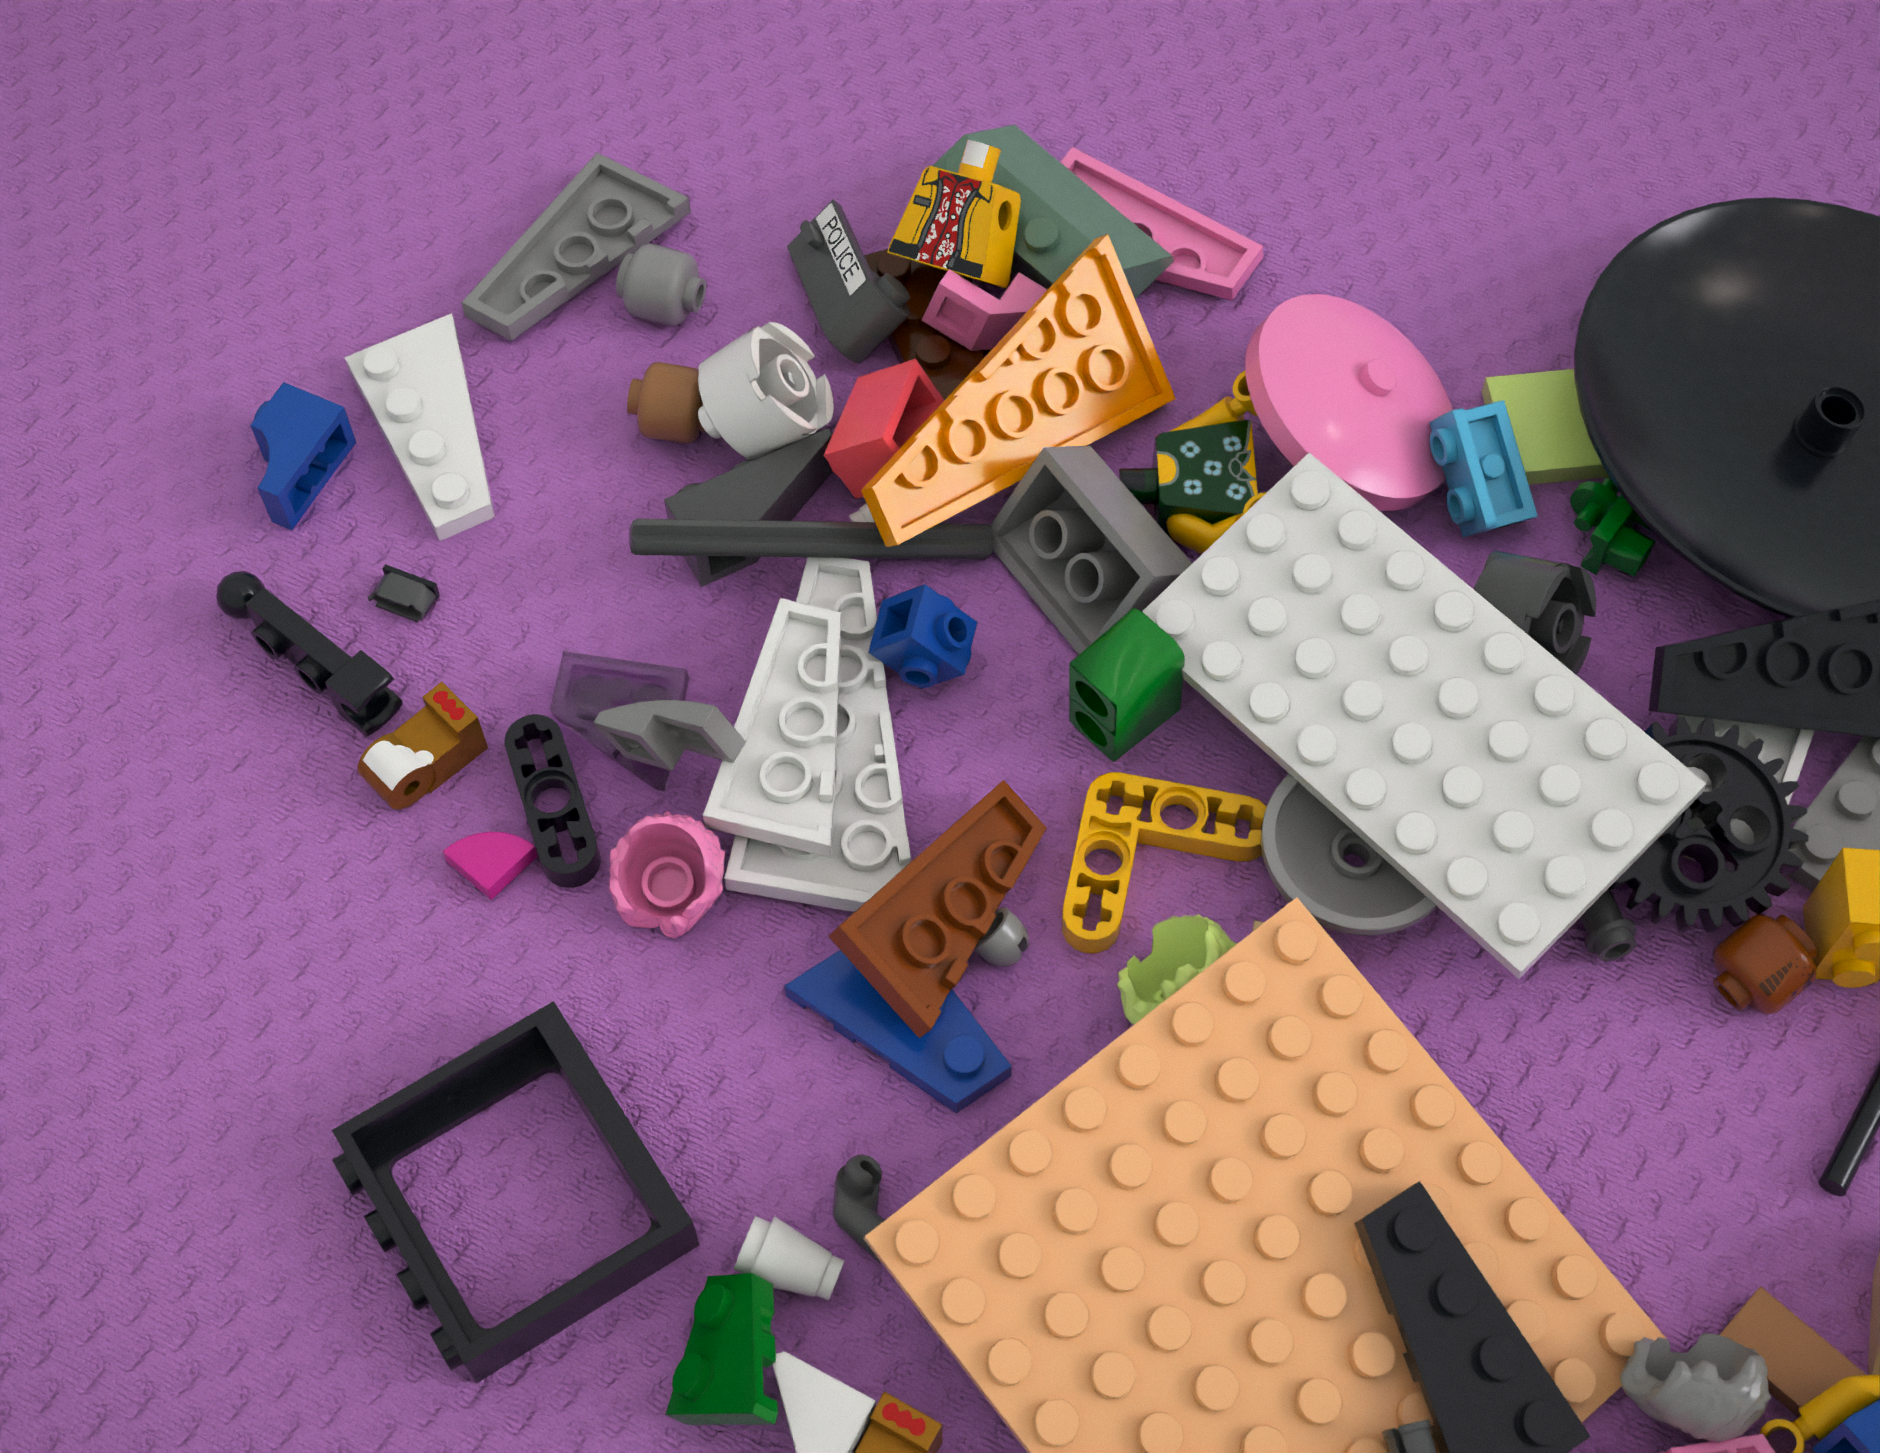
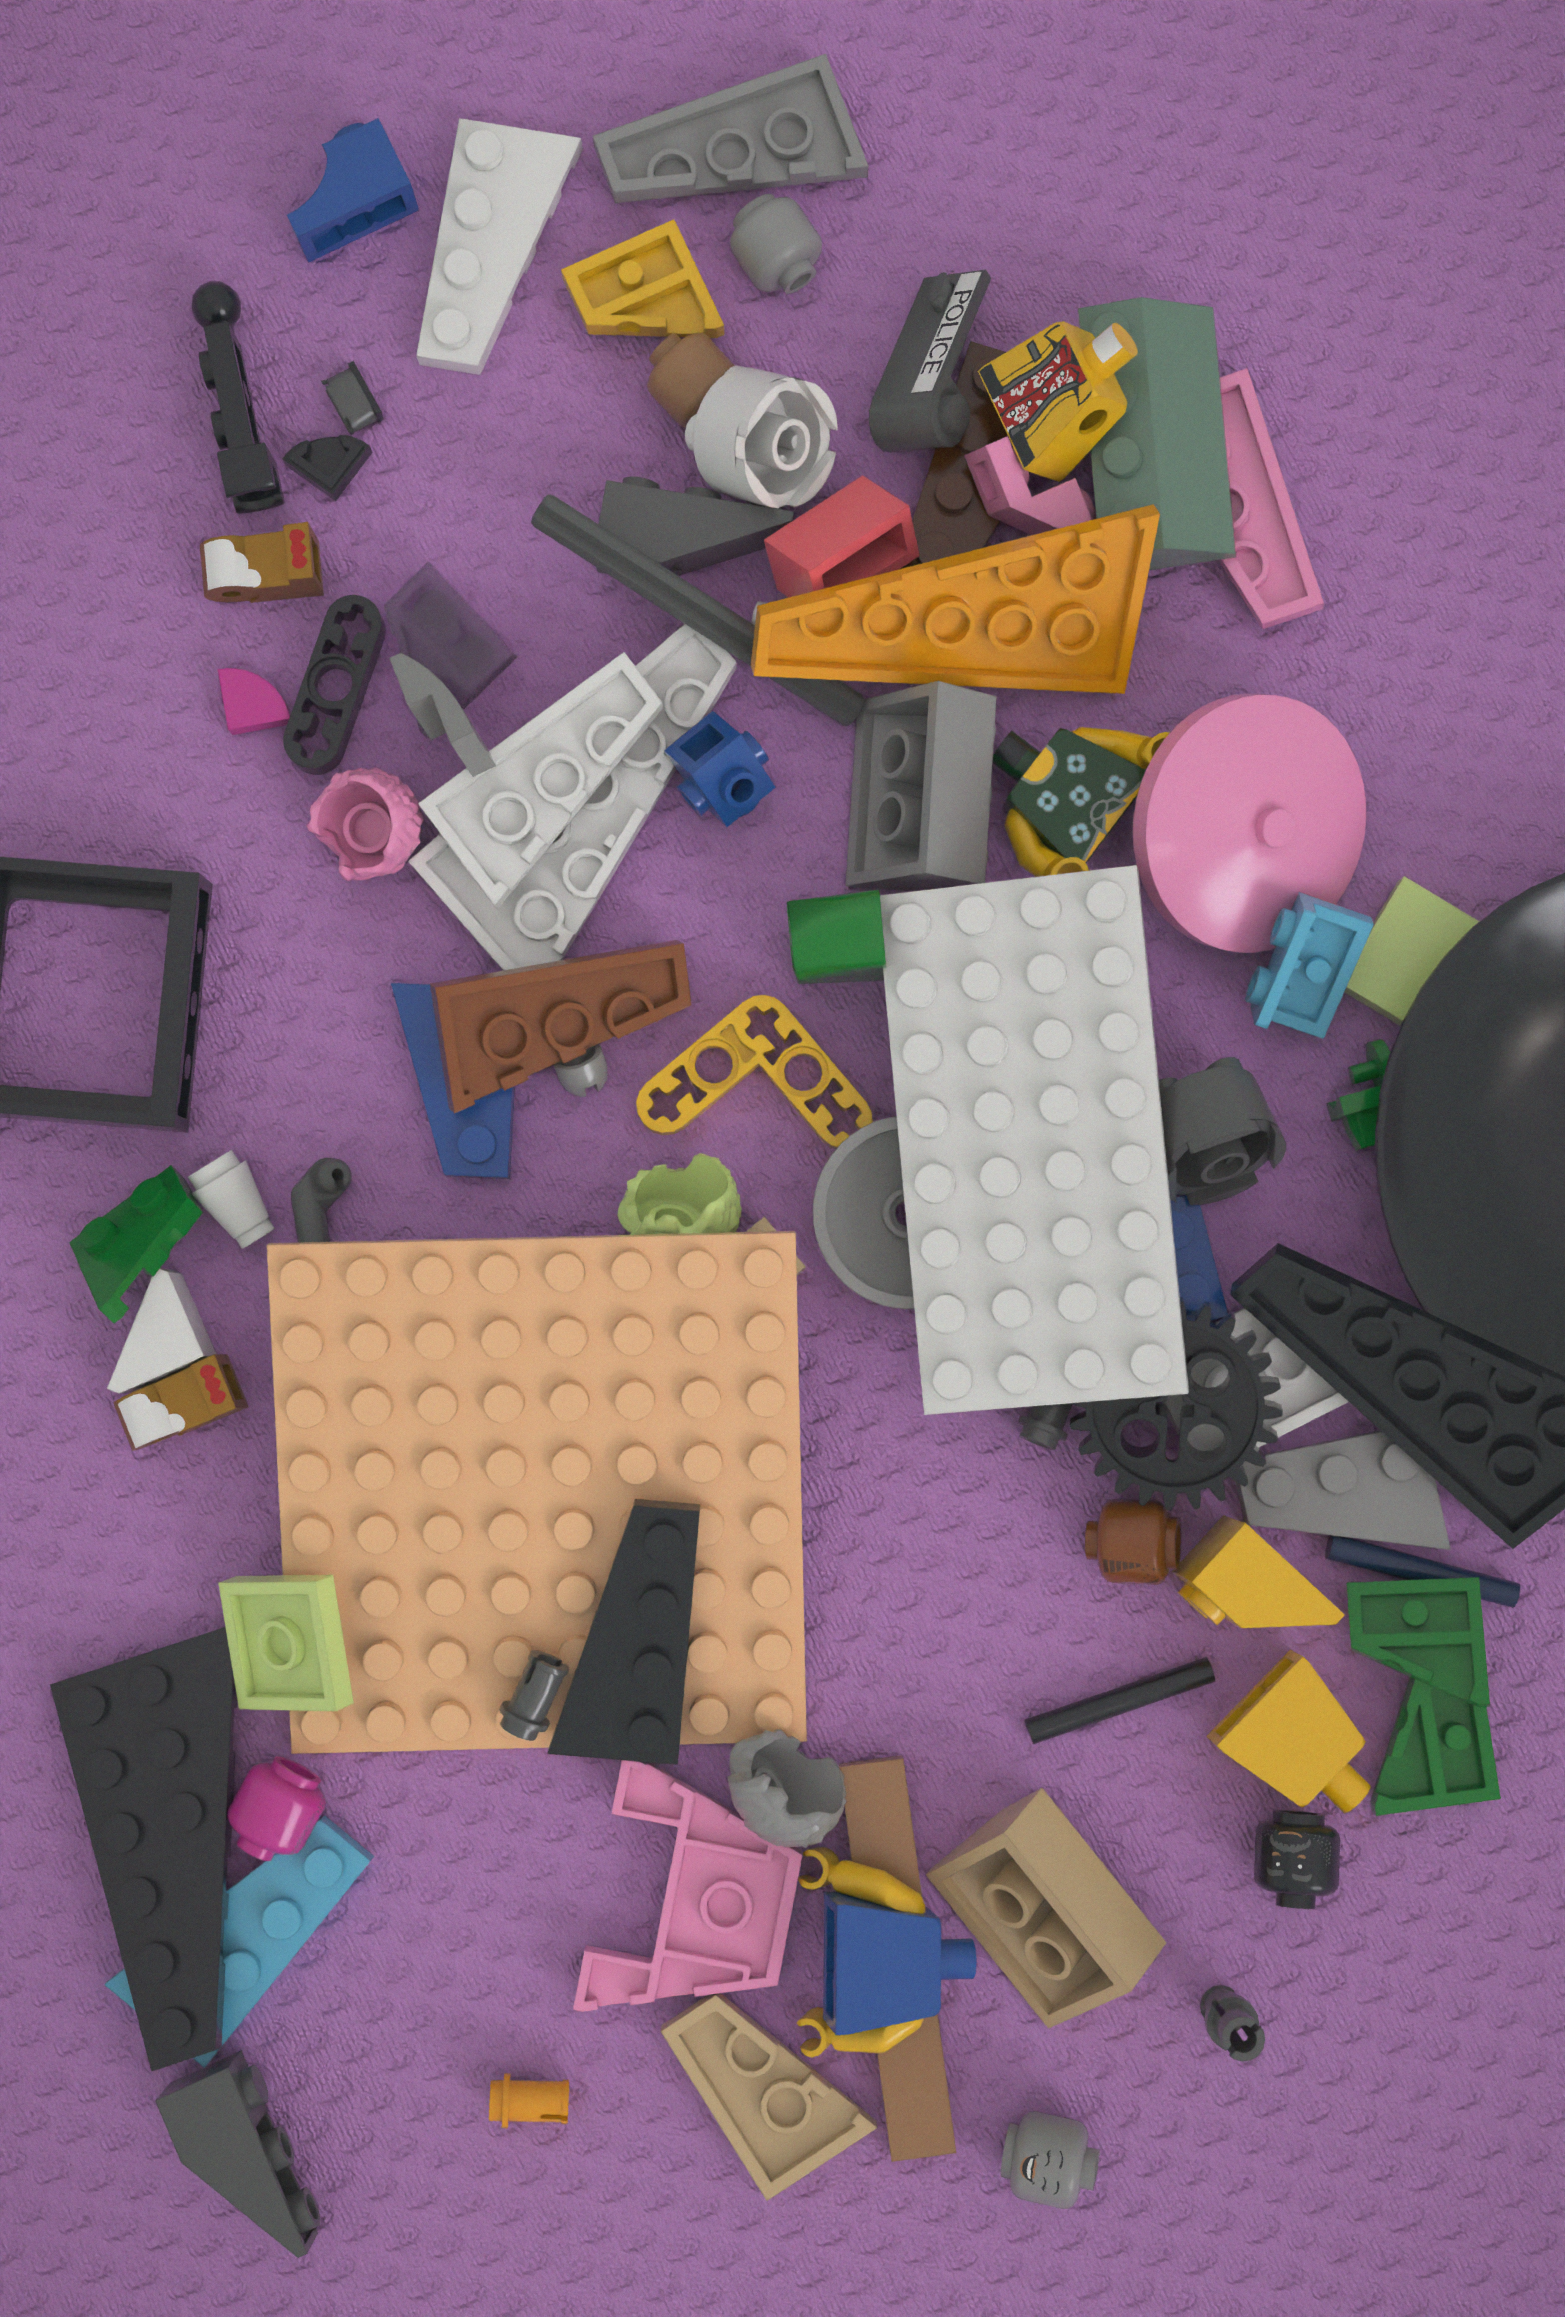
camera: 35 degrees right, 25 degrees up
(419, 650) = (328, 462): none -> black tile
(579, 375) = (643, 288): none -> yellow wing

